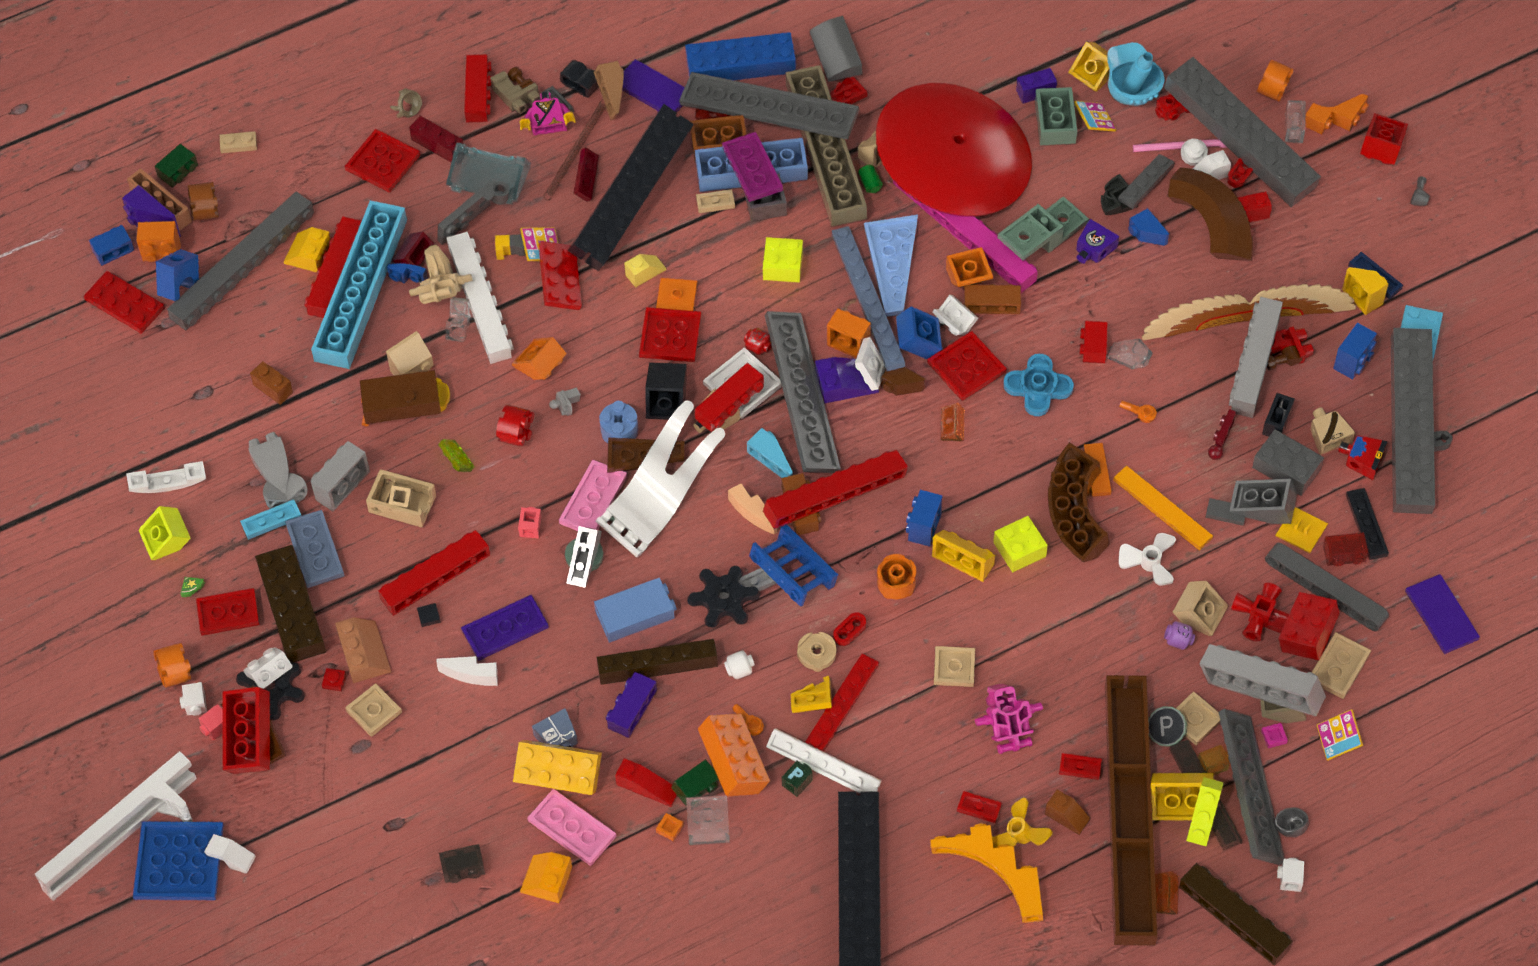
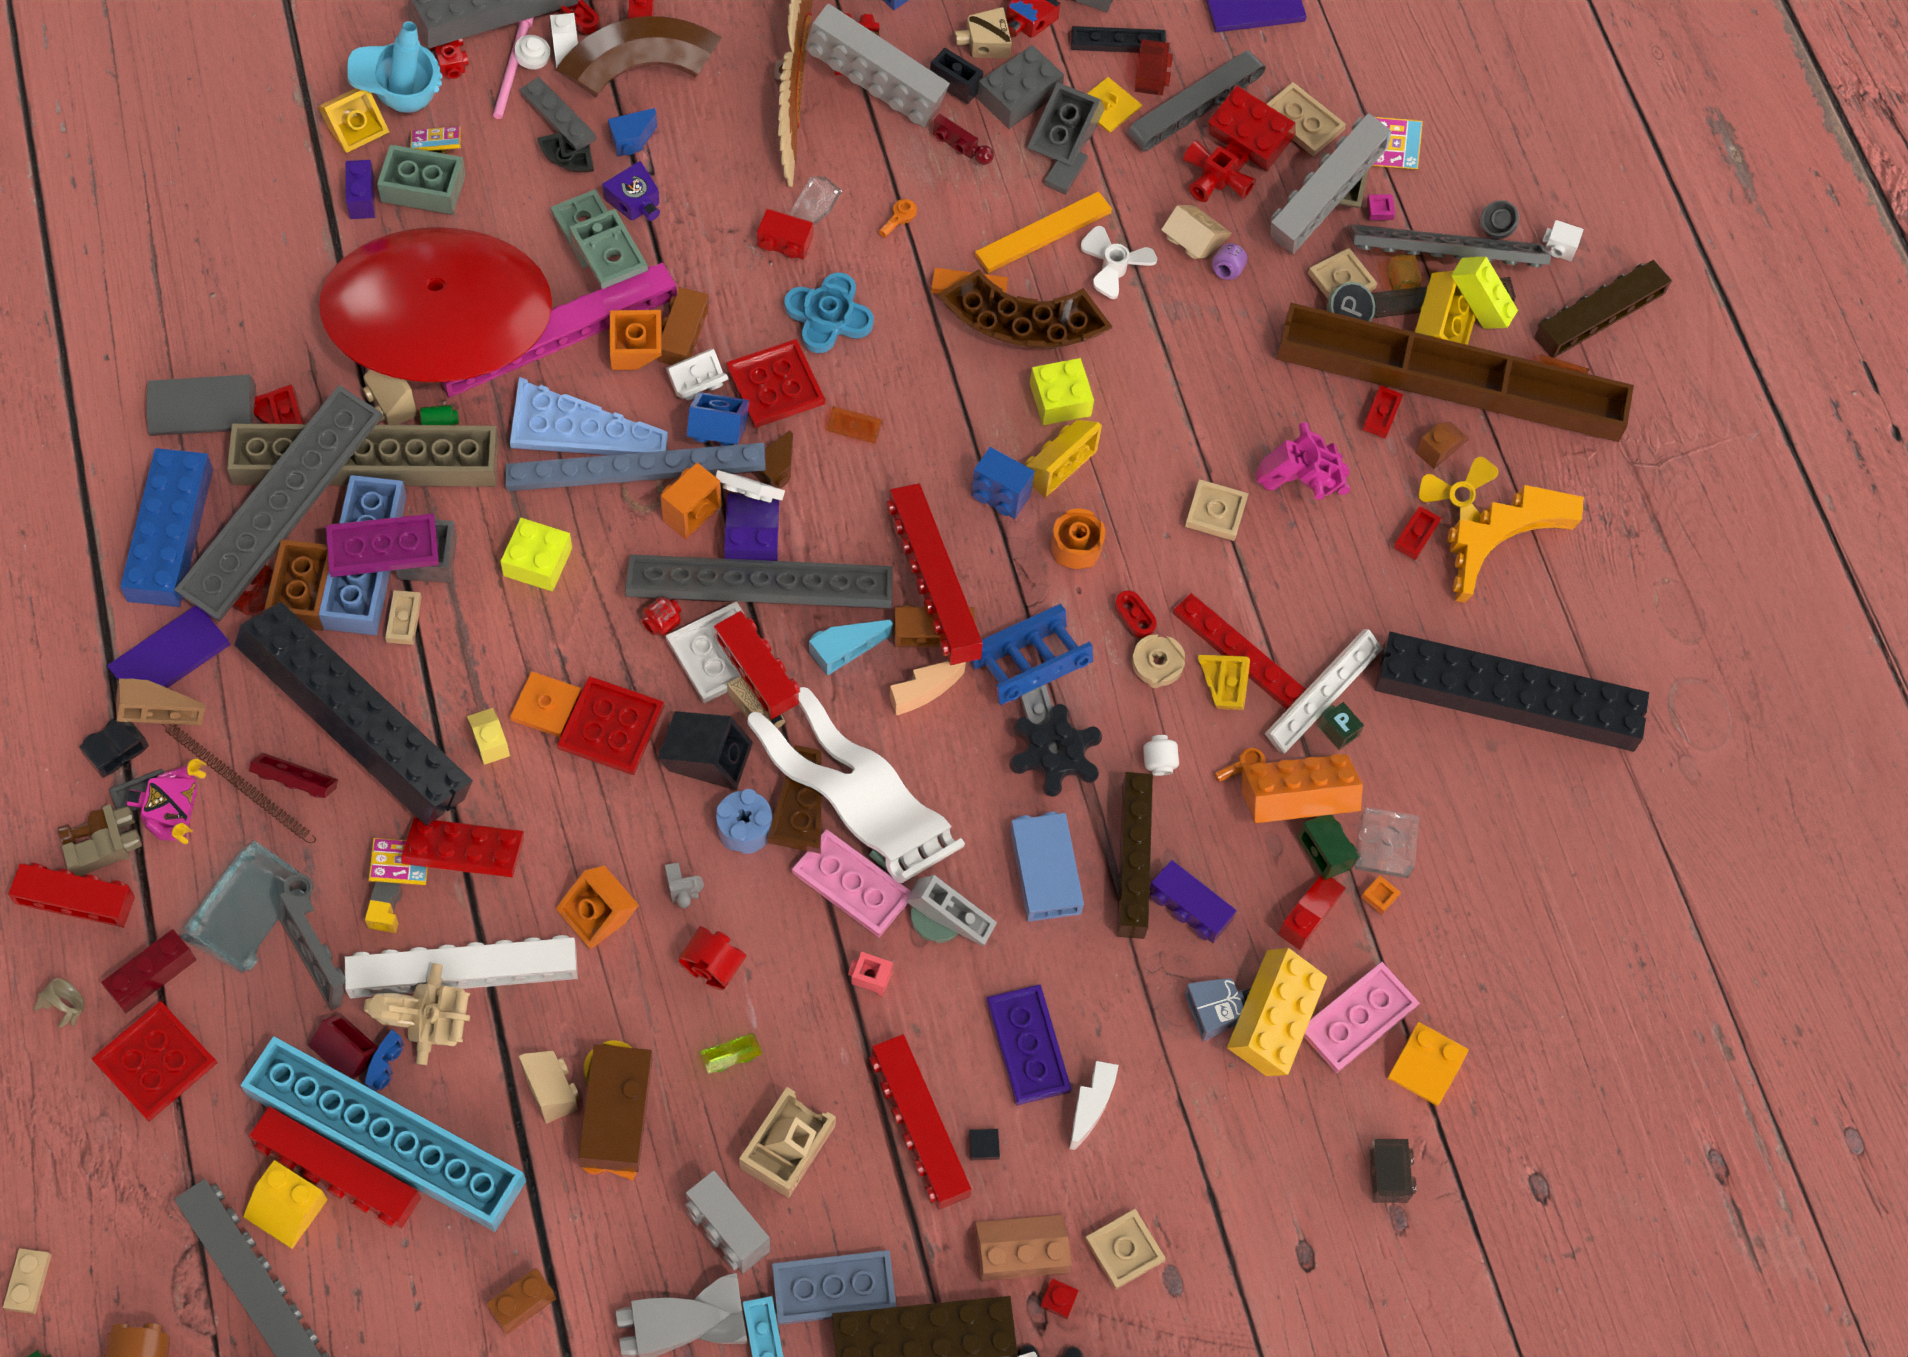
camera: 85 degrees left, 5 degrees up
(459, 319) = (498, 1004): clear brick -> none

